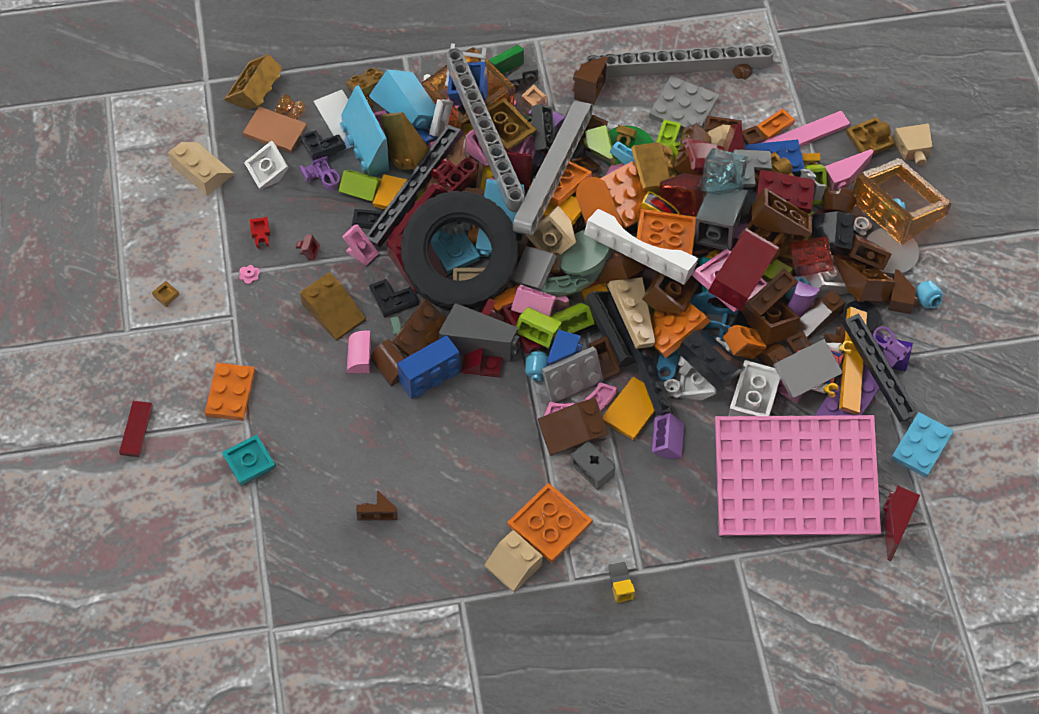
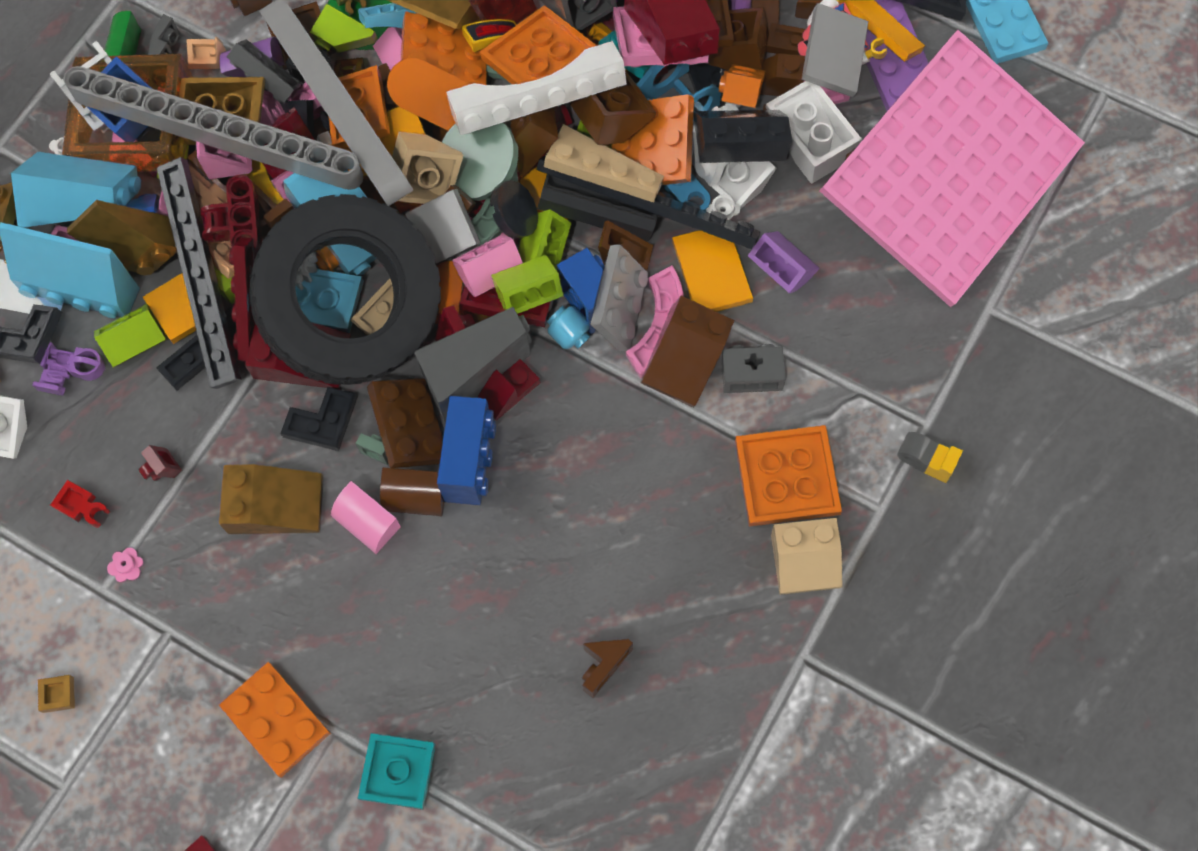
camera: 45 degrees left, 10 degrees up
(359, 245) = (216, 401): bright pink slope -> none
(441, 117) = (137, 168): white tile -> none
(571, 290) = (514, 209): none -> black tile
(898, 511) = (1092, 112): dark red slope -> none

